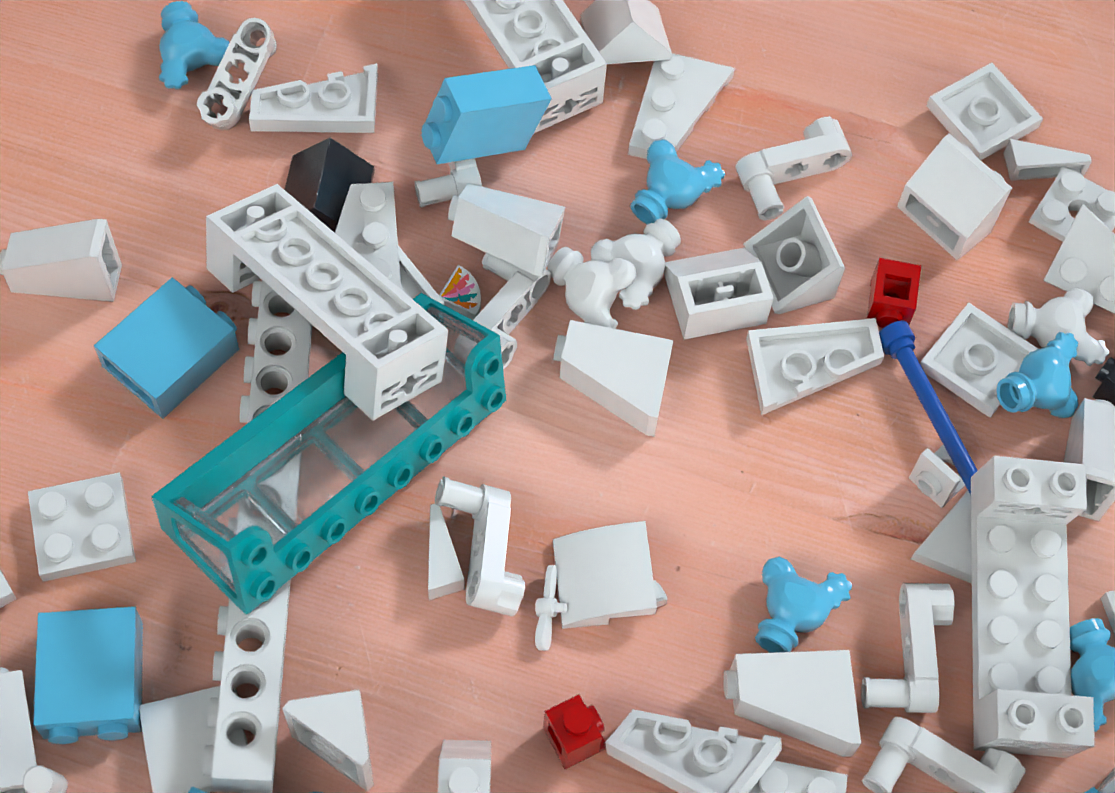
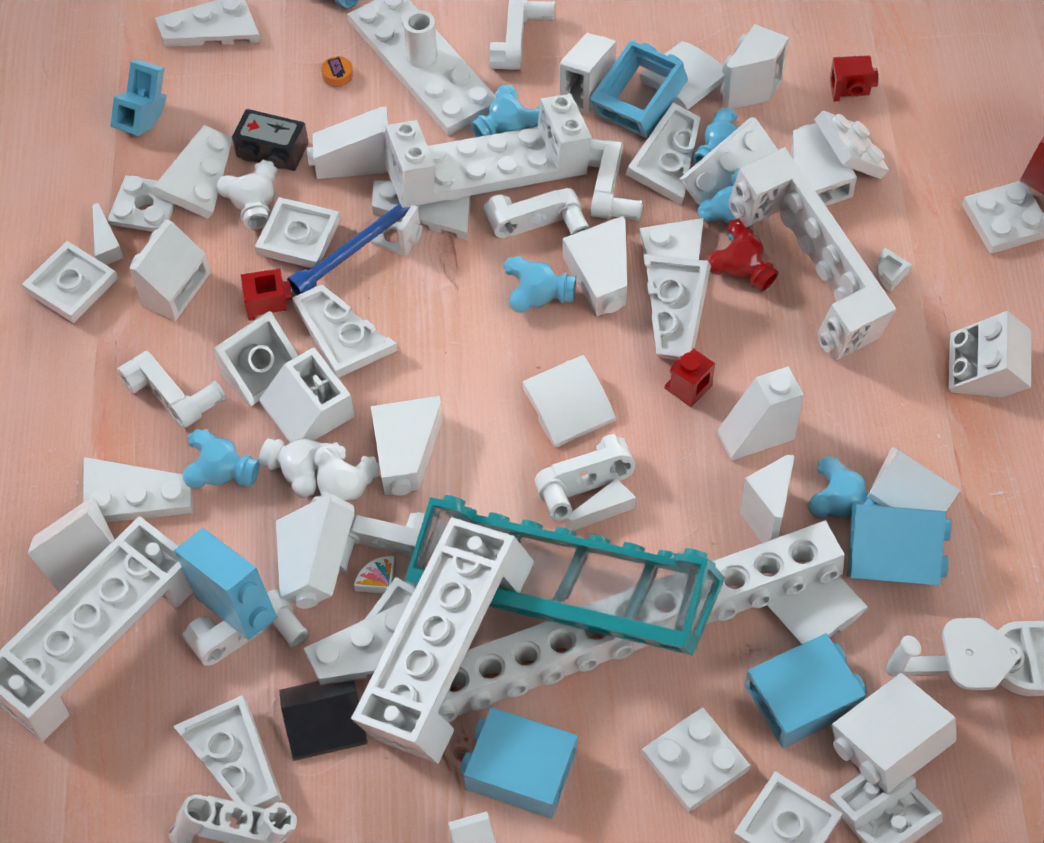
camera: 105 degrees left, 5 degrees down
(546, 609) = (606, 428): white piece -> none
(1043, 380) = (307, 187): medium azure animal -> none

